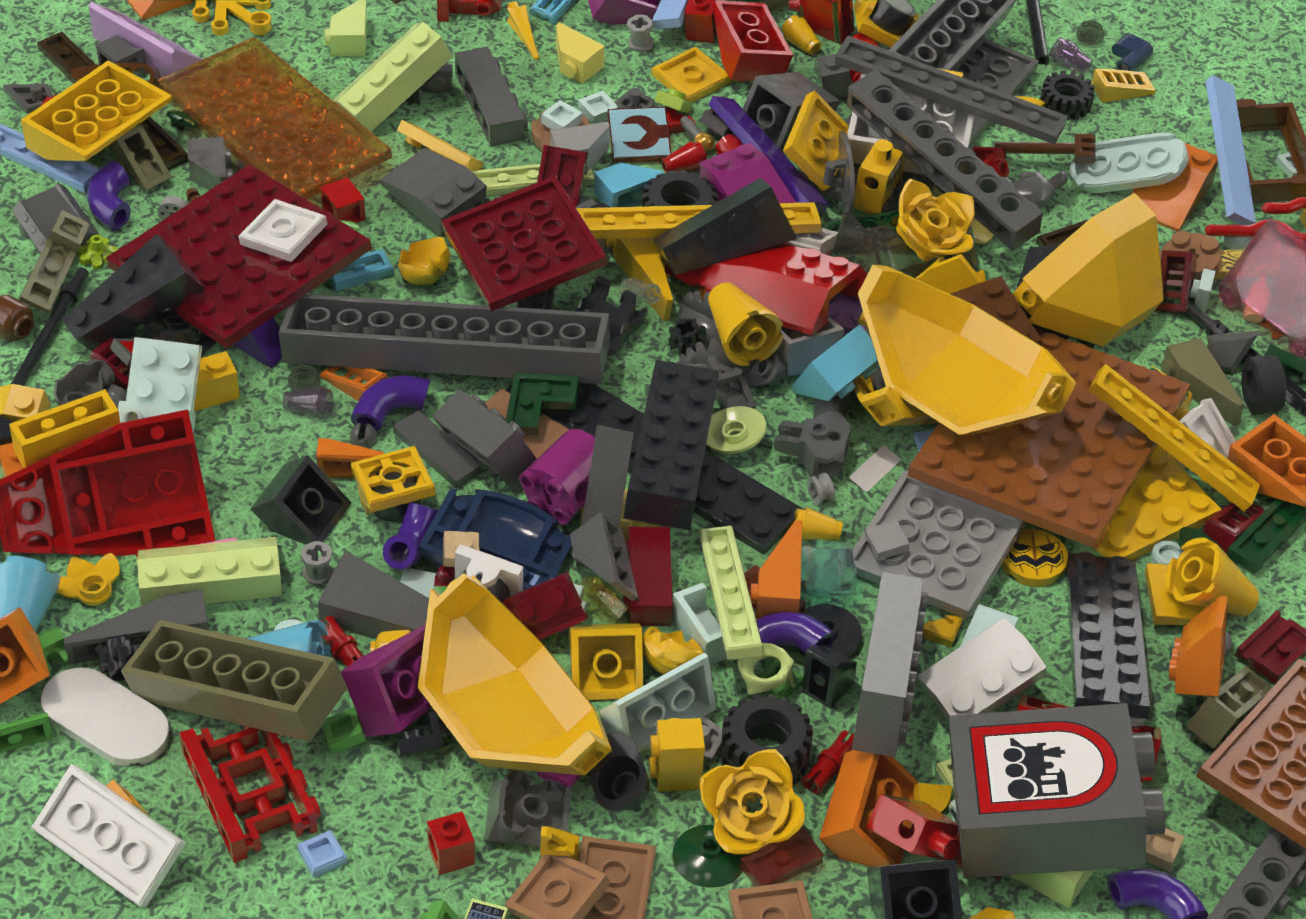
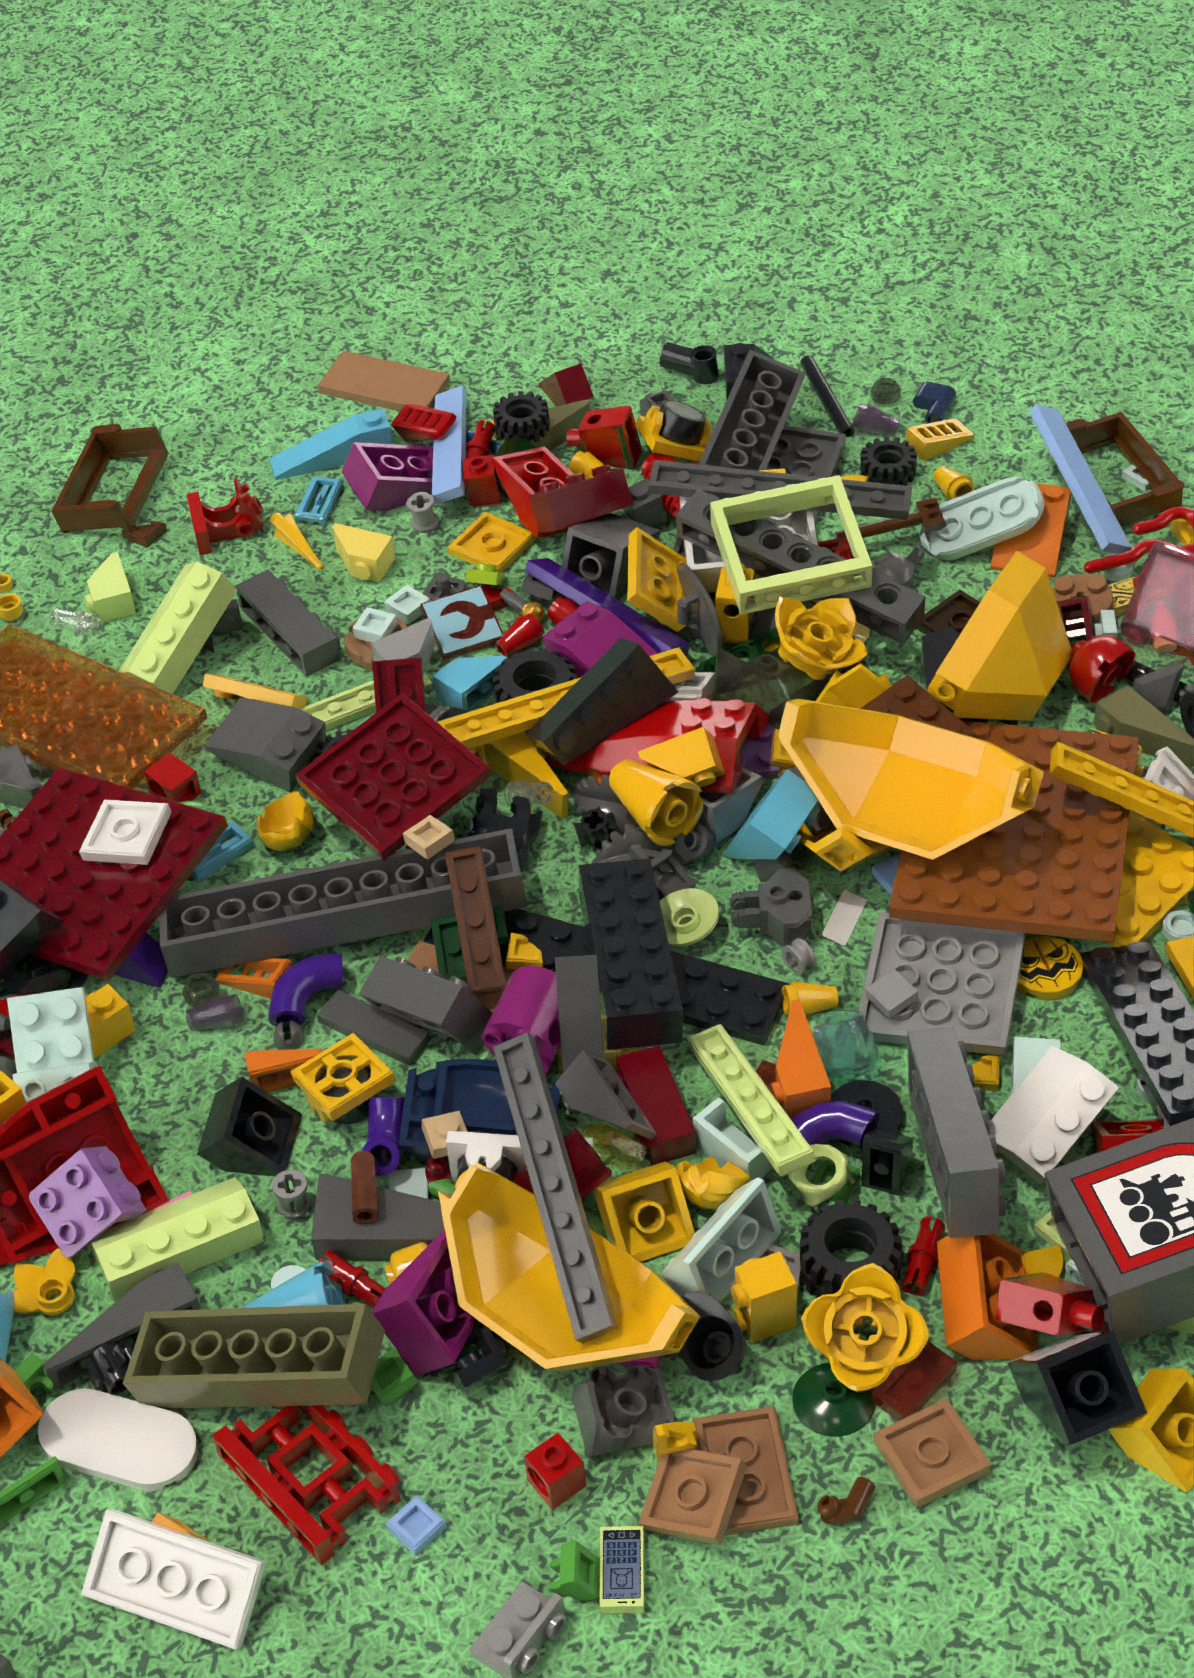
camera: 10 degrees left, 0 degrees up
(144, 517) = (85, 1199): none -> medium lavender bracket
(312, 50) = (80, 622): none -> clear pin
(375, 572) = (363, 1188): none -> copper bar
(531, 615) = (555, 1189): none -> dark grey plate
(534, 301) = (428, 837): none -> tan plate
(549, 381) = (475, 921): none -> reddish brown tile
(583, 419) = (522, 953): none -> yellow tile
(776, 54) = (580, 498): none -> dark red brick
(782, 293) = (687, 756): none -> yellow slope
(938, 173) = (799, 584): none -> yellowish green window
(1117, 125) = (952, 483): none -> yellow cone
(1182, 315) = (1098, 664): none -> red cylinder

